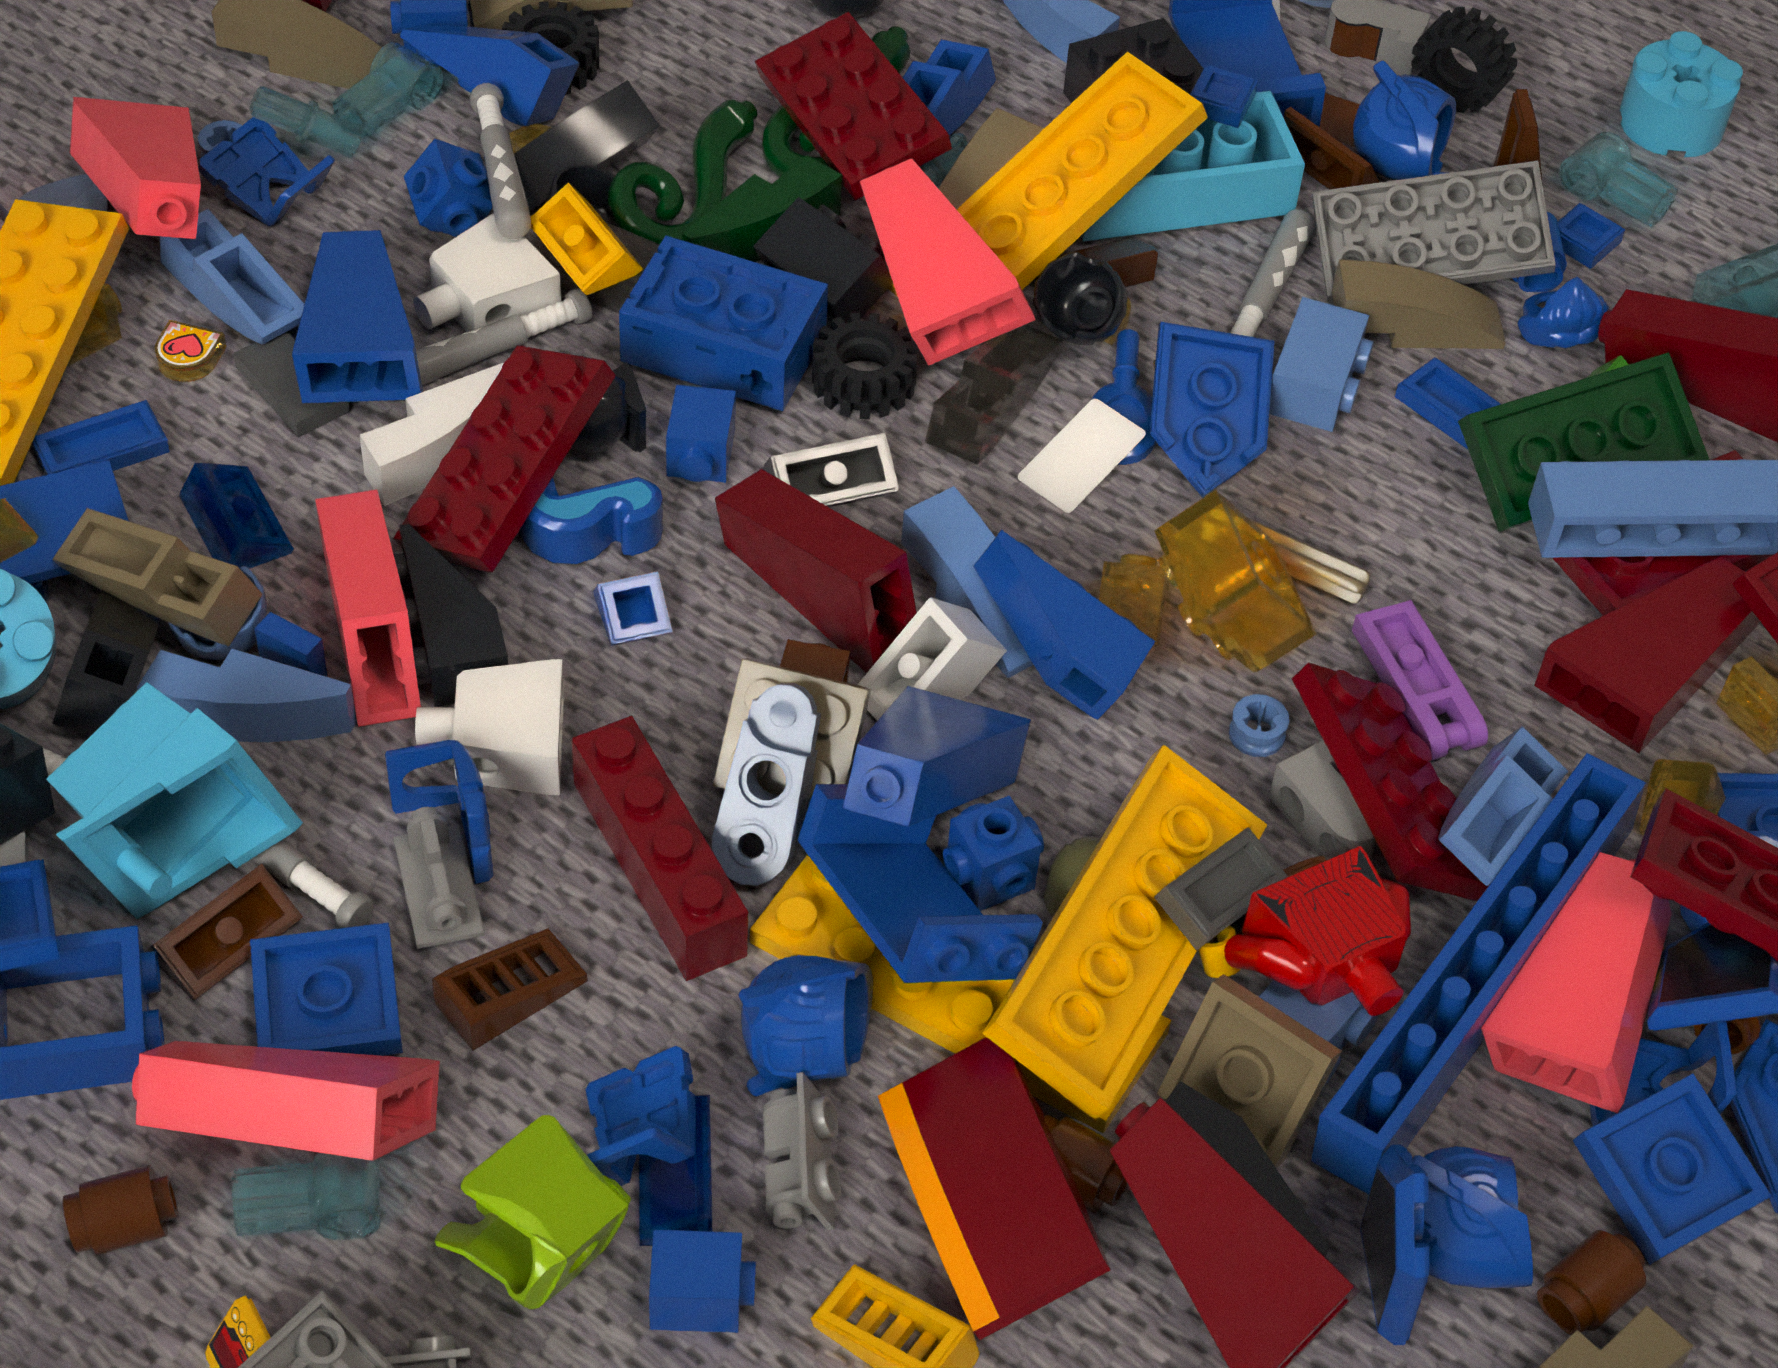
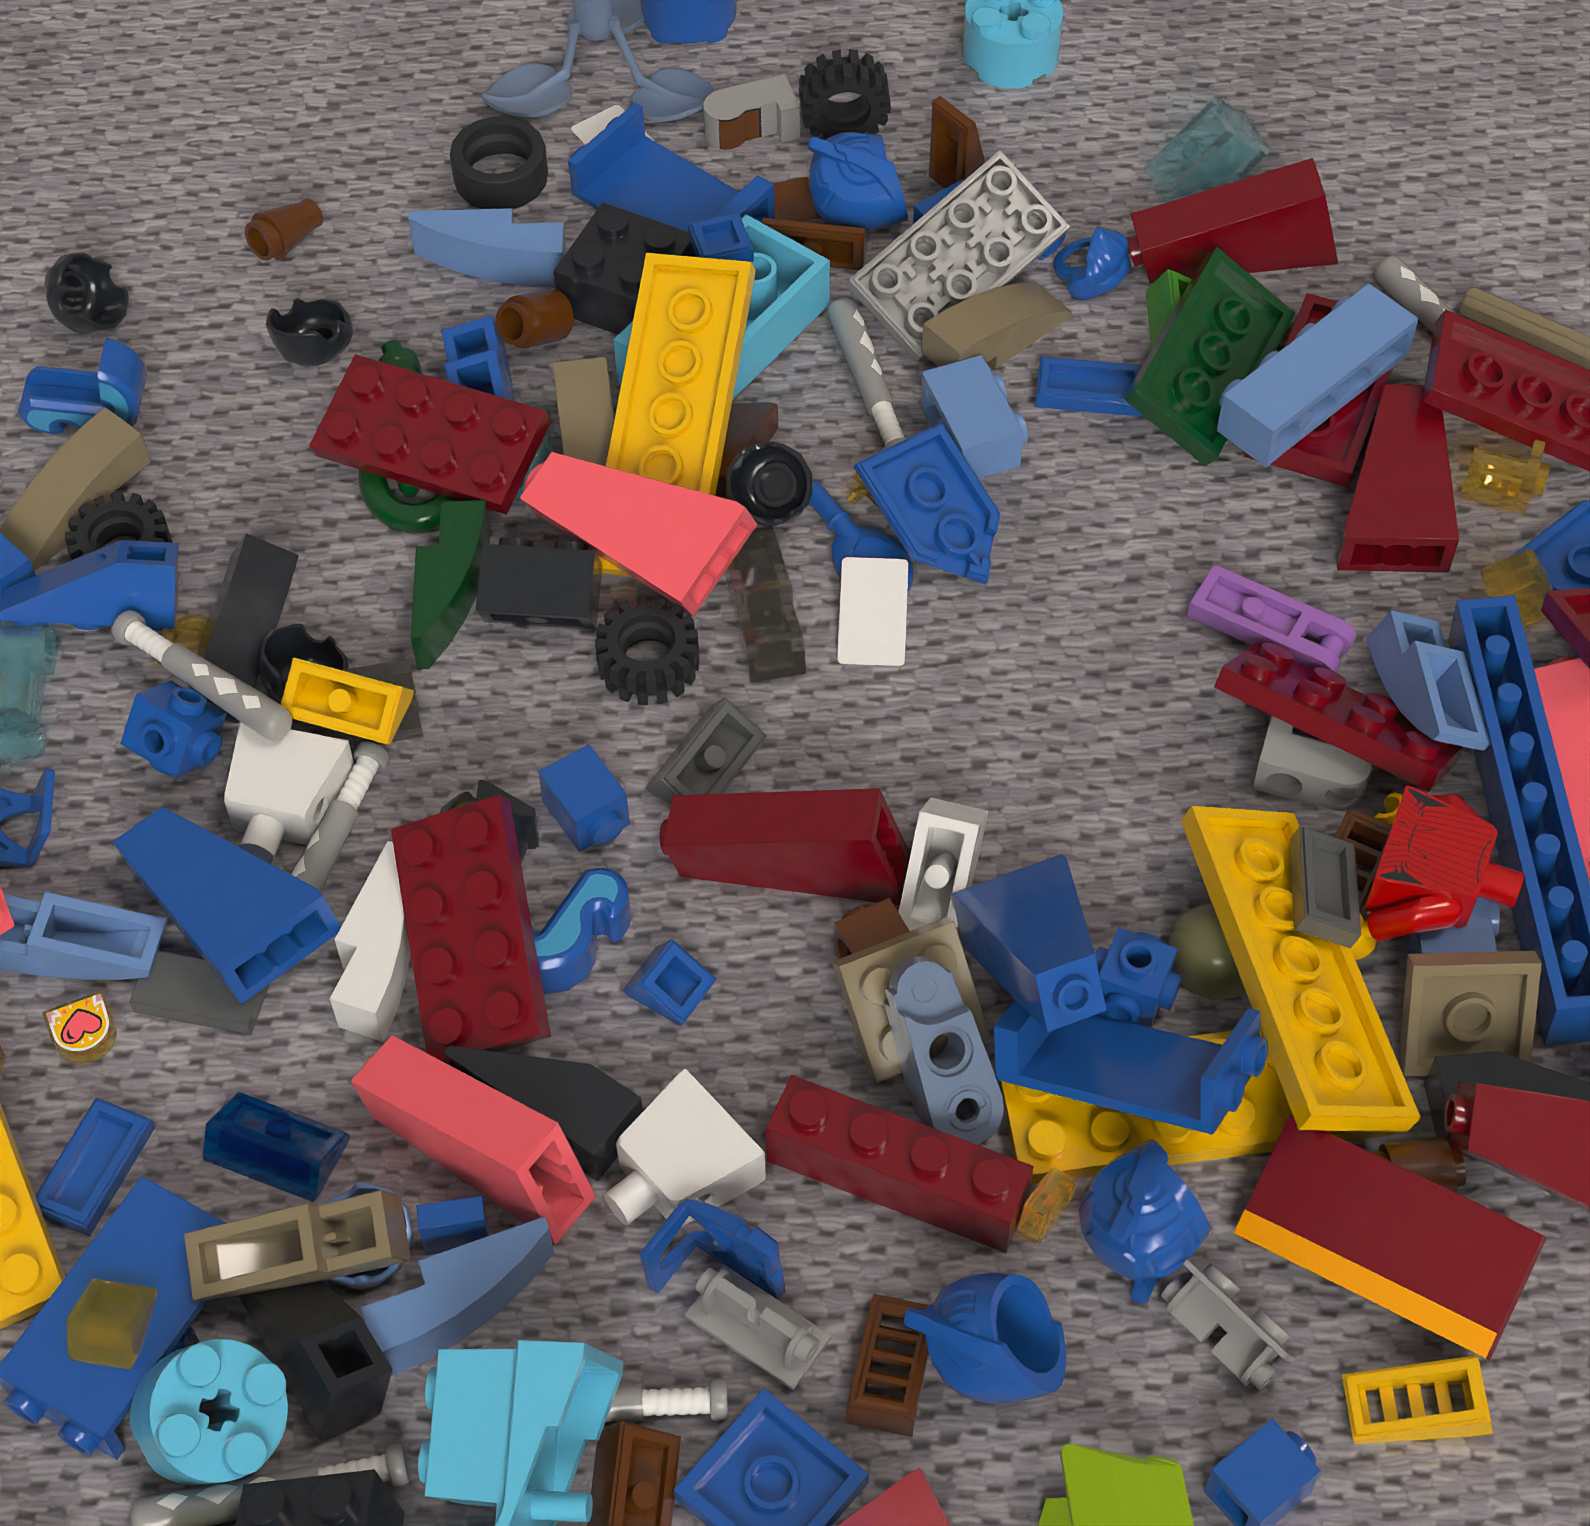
camera: 35 degrees left, 5 degrees up
(588, 1010) = (993, 1338): none -> blue helmet
(643, 1114) = (1095, 1373): blue piece -> none
(678, 1193) = (1158, 1405): clear blue slope -> none
(716, 138) = (340, 538): dark green plant -> none
(722, 322) = (515, 691): blue piece -> none
(741, 958) = (1046, 1205): none -> clear yellow tile
(947, 542) = (904, 765): medium blue slope -> none
(1027, 76) = (535, 318): none -> reddish brown brick
(1068, 633) = (1020, 765): blue slope -> none
(1136, 591) = (1028, 703): clear yellow bracket -> none
(1232, 583) = (1102, 639): clear yellow brick -> none
(1256, 742) = (1205, 722): medium blue bush -> none
(1319, 567) = (1086, 588): dark tan axle -> none
(1588, 235) = (1050, 182): blue tile -> none
(1607, 170) = (1013, 125): clear light blue piece -> none

